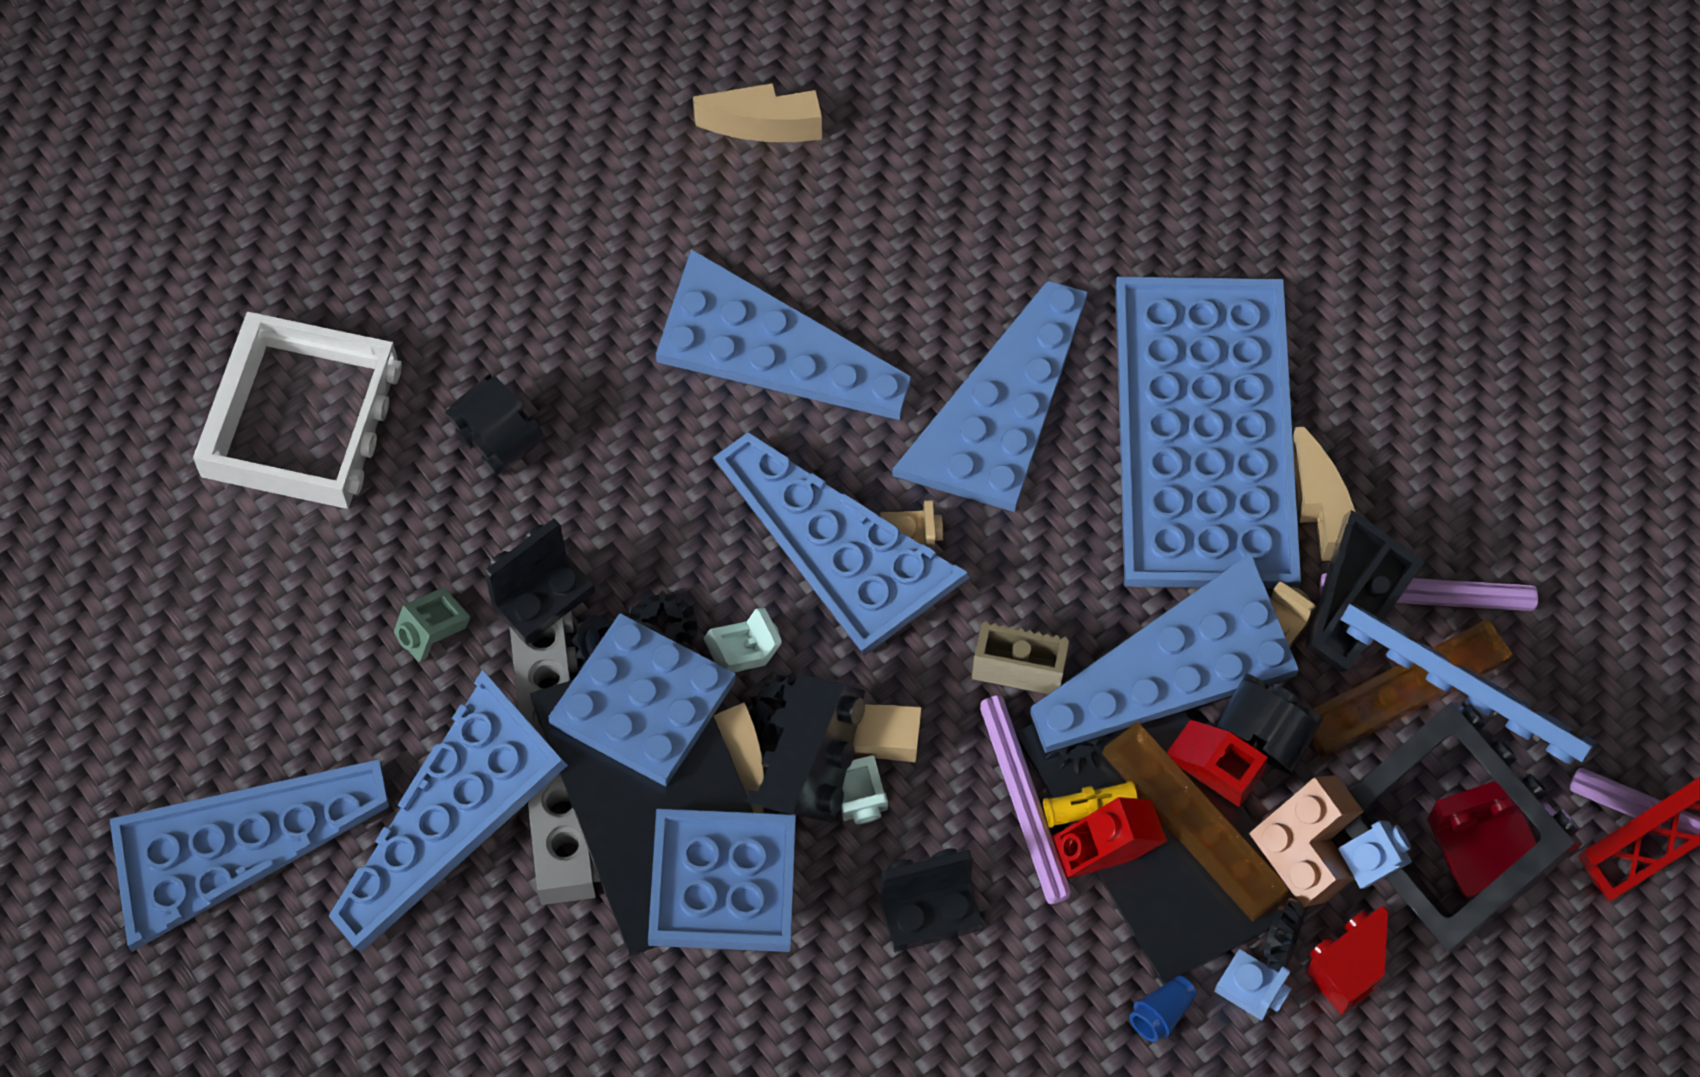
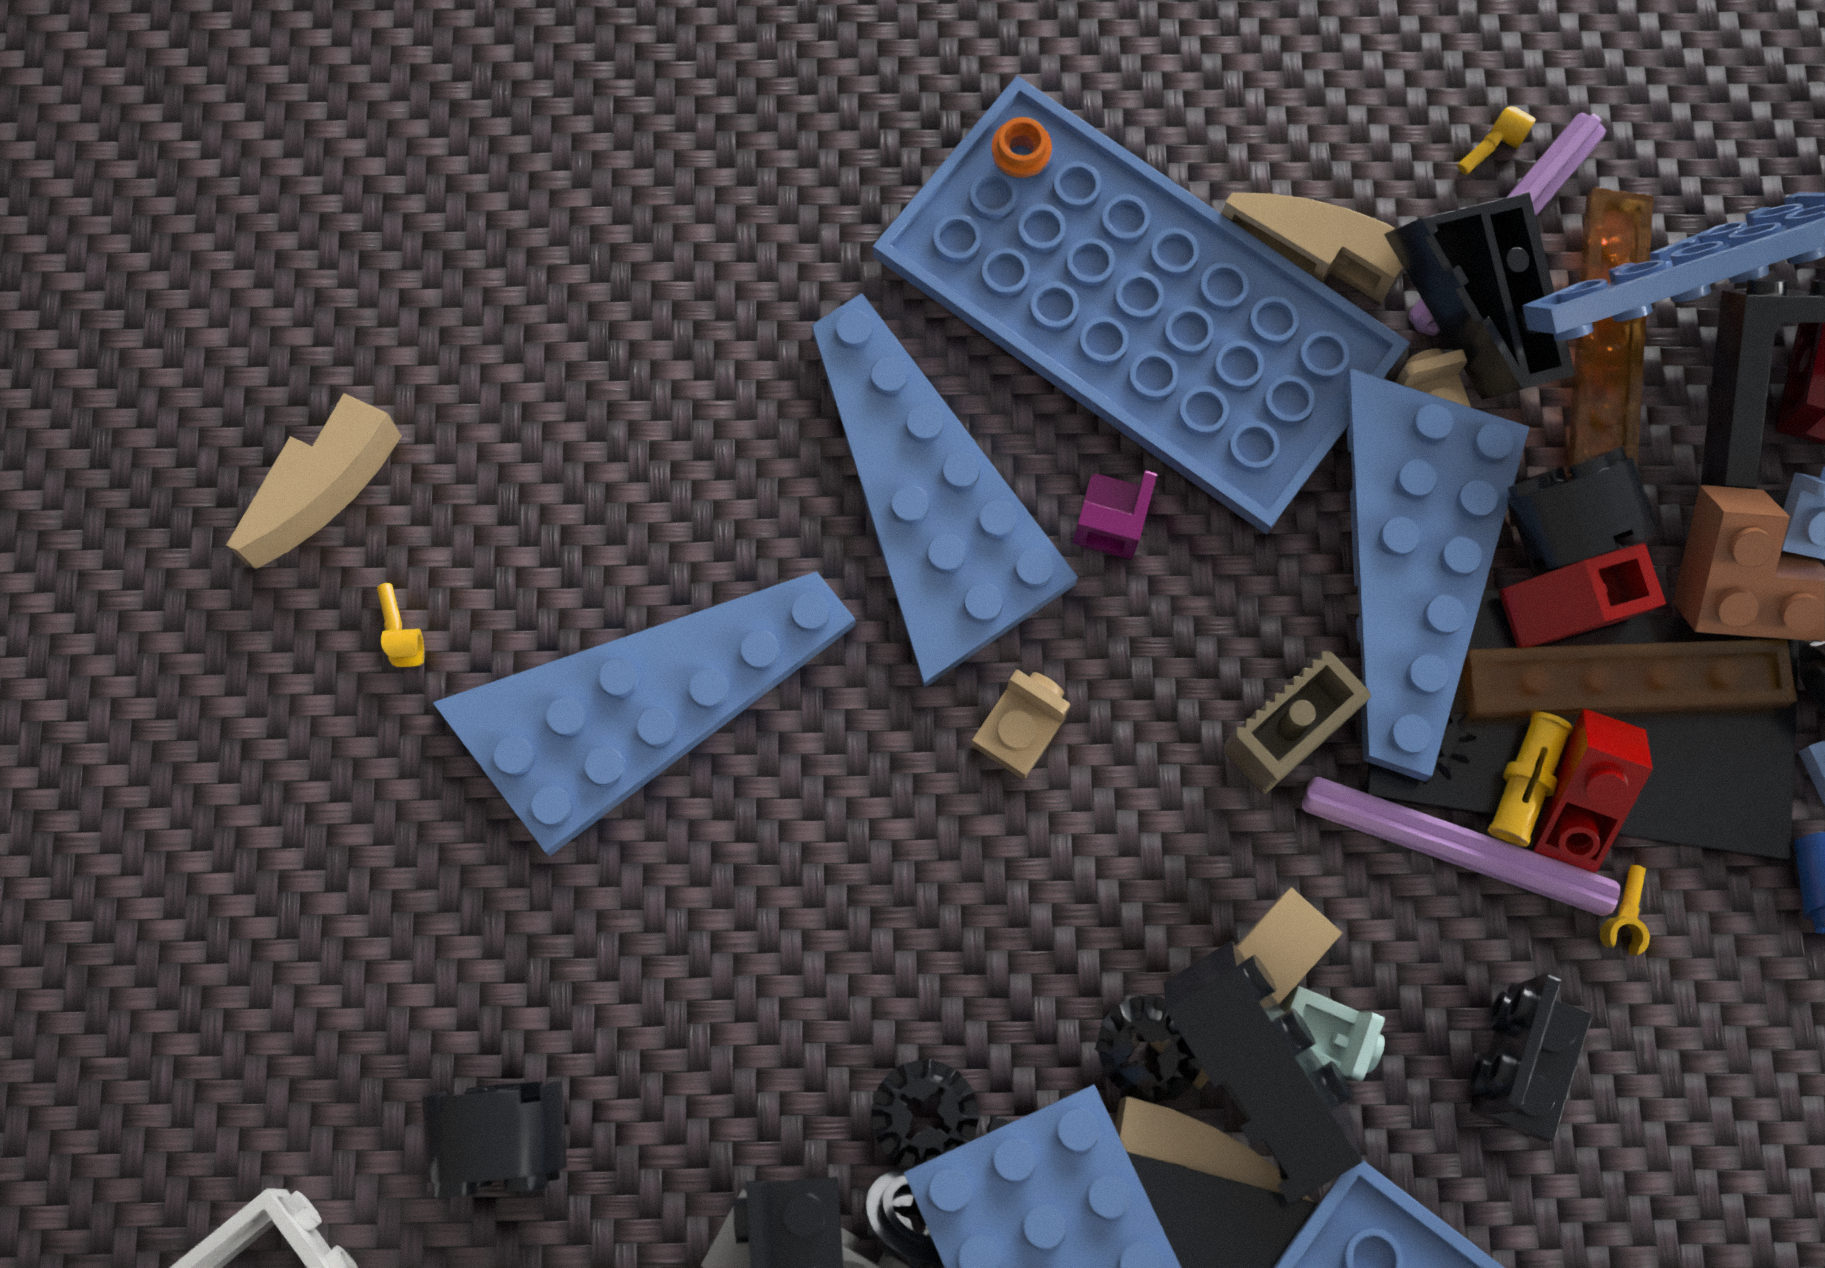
camera: 55 degrees left, 10 degrees up
(710, 215) = (401, 646): none -> yellow hand
(745, 643) = (1032, 1033): light aqua bracket -> none
(848, 555) = (1011, 820): medium blue wing -> none
(1058, 913) = (1628, 915): none -> yellow hand
(1068, 501) = (1114, 514): none -> magenta panel
(1240, 297) = (1026, 133): none -> orange plate
(1490, 553) = (1509, 128): none -> yellow hand

